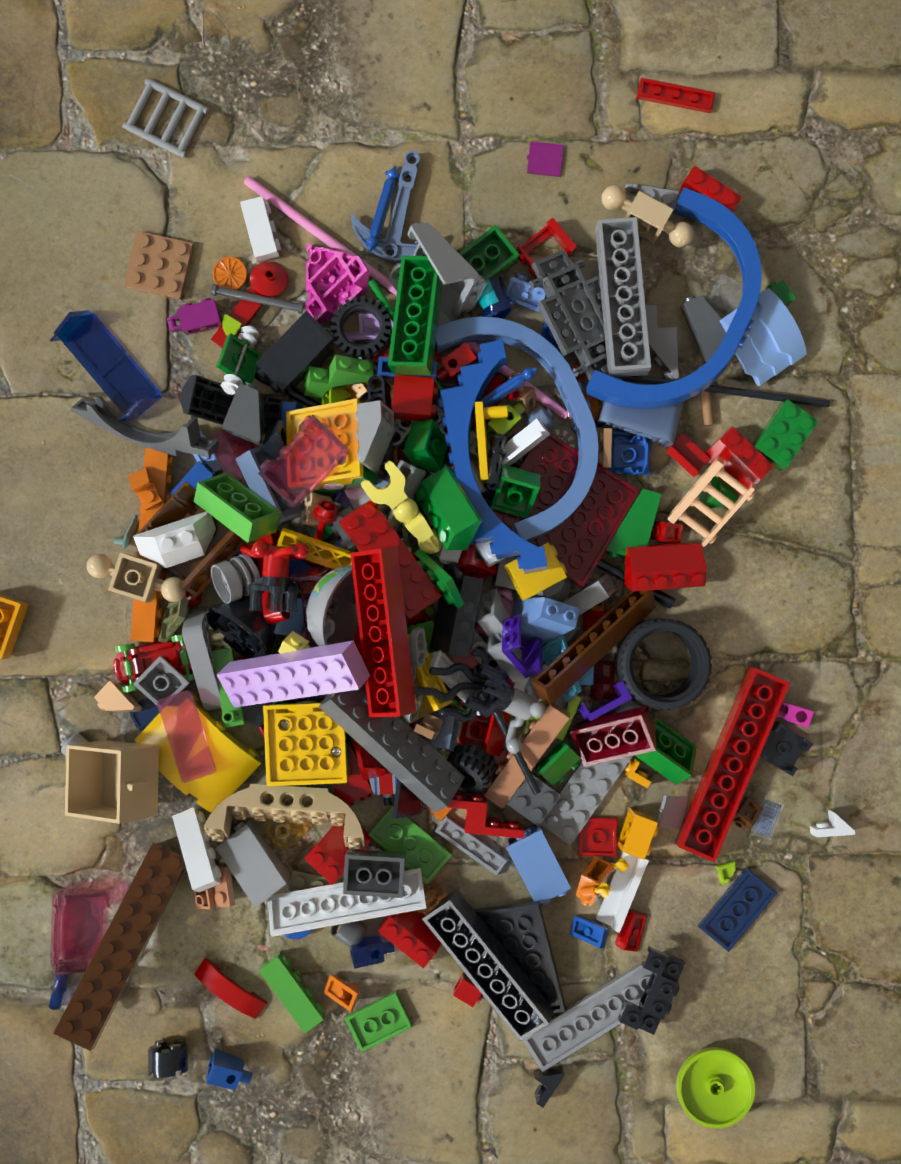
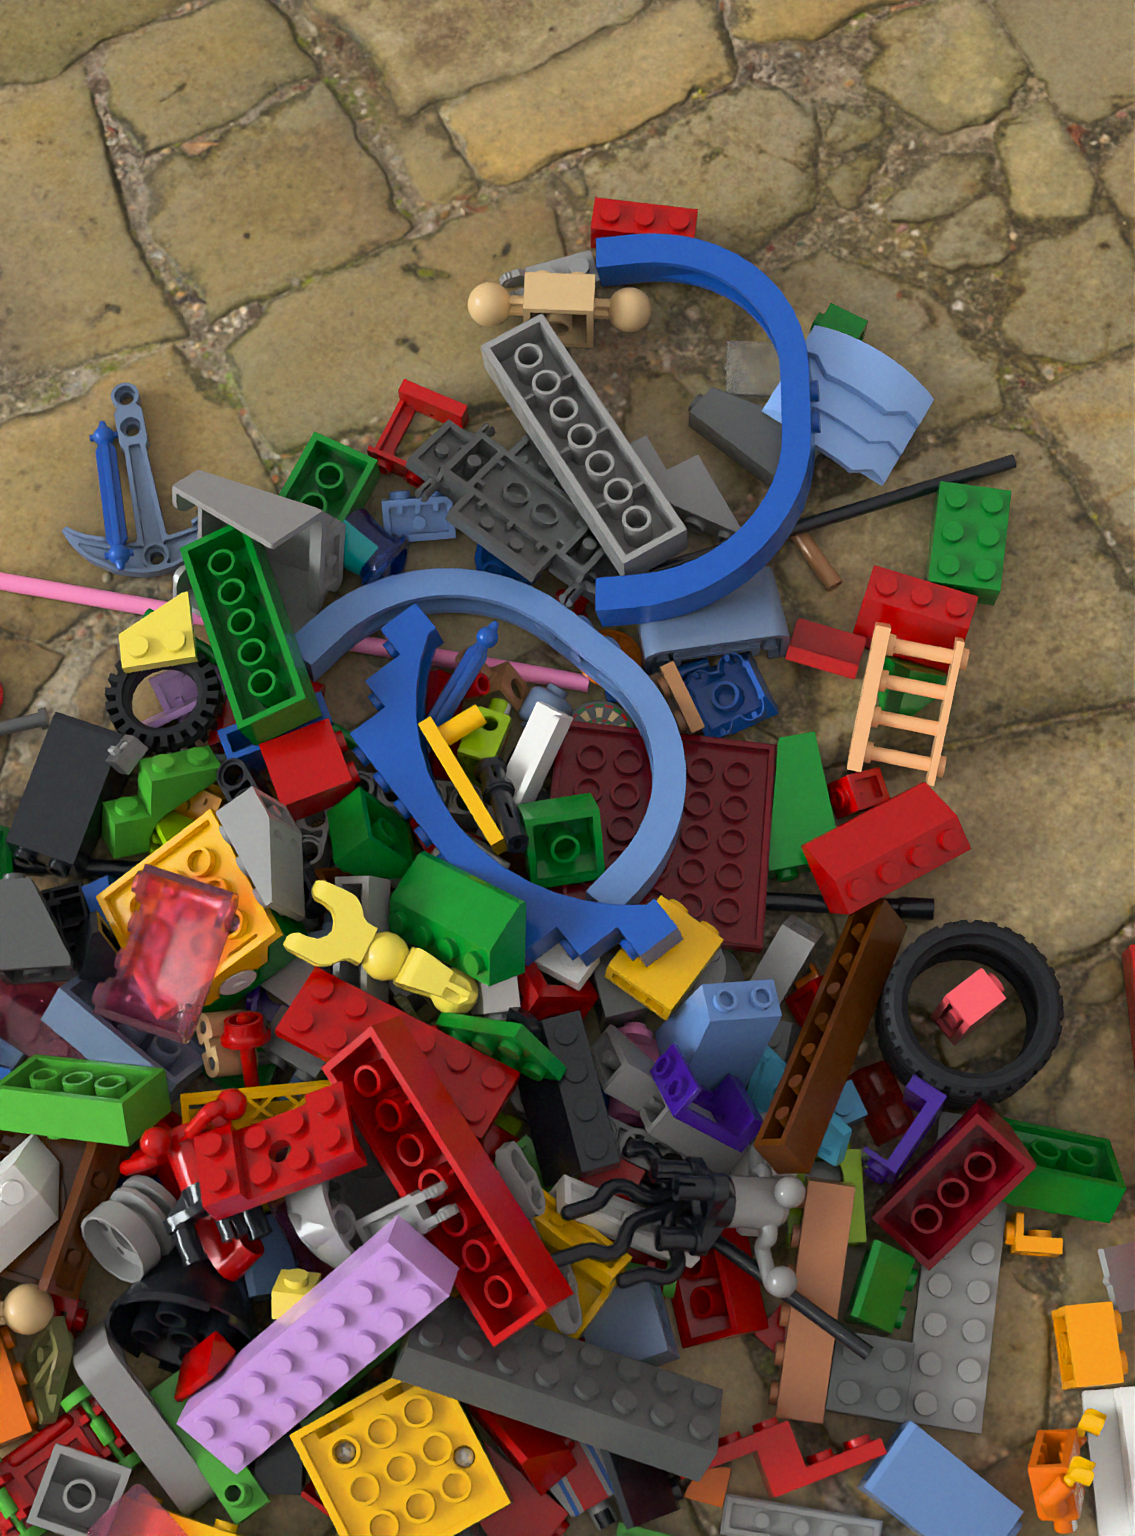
camera: 20 degrees left, 15 degrees down
(239, 653) = (202, 1364): none -> red slope
(292, 581) = (240, 1166): none -> red piece
(330, 349) = (126, 754): none -> flat silver piece
(332, 280) = (76, 645): dark pink wedge -> none
(360, 639) = (411, 1209): none -> light grey hinge
(372, 297) = (160, 638): none -> light yellow wing
(430, 726) = (612, 1324): medium nougat bracket -> none
(461, 357) = (348, 682): red torso -> none
(474, 765) = (734, 1363): black tyre -> none
(545, 159) = (347, 300): magenta piece -> none
(598, 837) = (1025, 1394): red tile -> none
(665, 660) = (969, 1005): none -> coral brick
(675, 95) = (511, 113): red tile -> none

